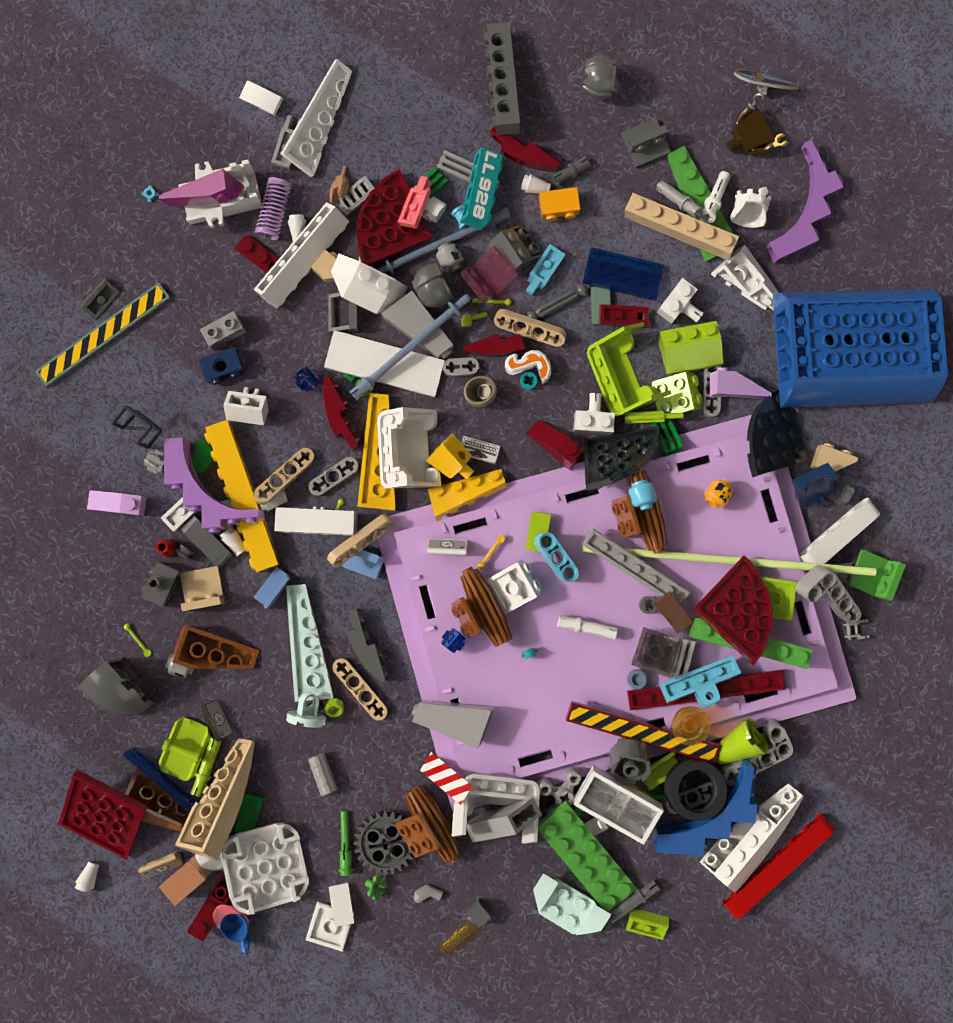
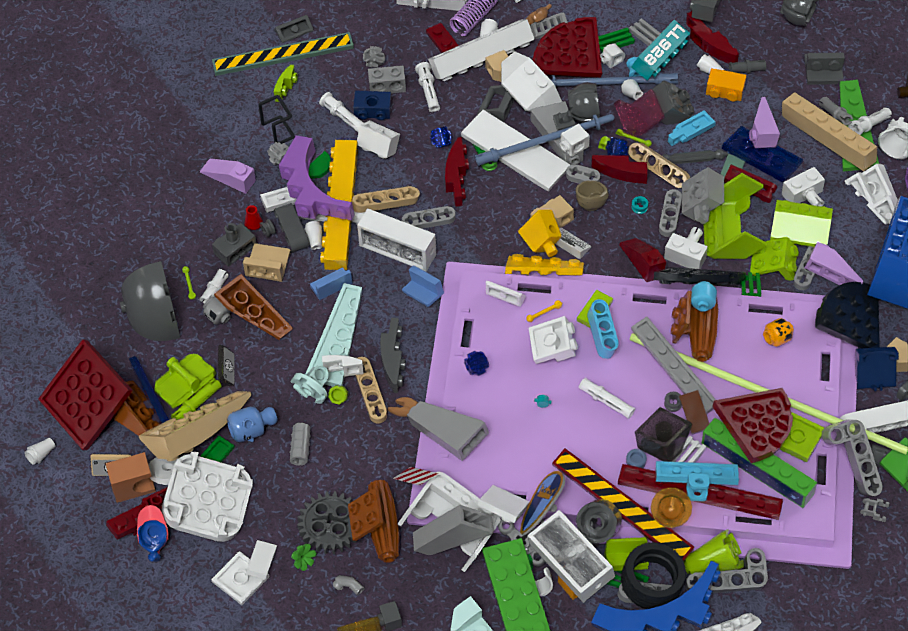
camera: 25 degrees right, 30 degrees down
(123, 367) = (285, 82): none -> lime slope
(164, 637) = (214, 285): none -> white pin
(189, 383) = (337, 108): none -> white pin
(197, 306) = (374, 56): none -> light grey gear
(262, 311) = (426, 80): none -> white pin
(267, 774) = (250, 423): none -> medium blue piece
(331, 681) = (348, 364): none -> white slope
(345, 854) = (287, 519): bright green pin -> none
(359, 540) = (428, 266): tan beam -> none
(371, 491) = (470, 225): yellow wing -> none
(405, 448) = (505, 210): white windscreen -> none
(406, 695) = (407, 404): none -> medium nougat hand
(415, 204) = (598, 41): coral hinge -> none
(421, 318) = (563, 120): none -> dark grey tile
(441, 340) = (574, 140): none -> white brick
(449, 256) = (610, 90): light grey head -> none
(452, 422) = (561, 209): none -> tan slope
(469, 246) = (631, 89): none -> white cone
(480, 609) = (512, 345): dark orange plate -> none
(482, 324) = (617, 147): none -> clear blue gear
(530, 360) = (647, 188): white animal -> none
(539, 780) = (503, 504): none -> white tile
(568, 391) = (670, 207): none -> light grey beam
(572, 761) = (543, 500): none -> shield
(588, 355) = (702, 194): none -> light grey hinge
(616, 247) = (764, 129): none -> lavender slope
(650, 417) = (741, 266): lime axle -> none

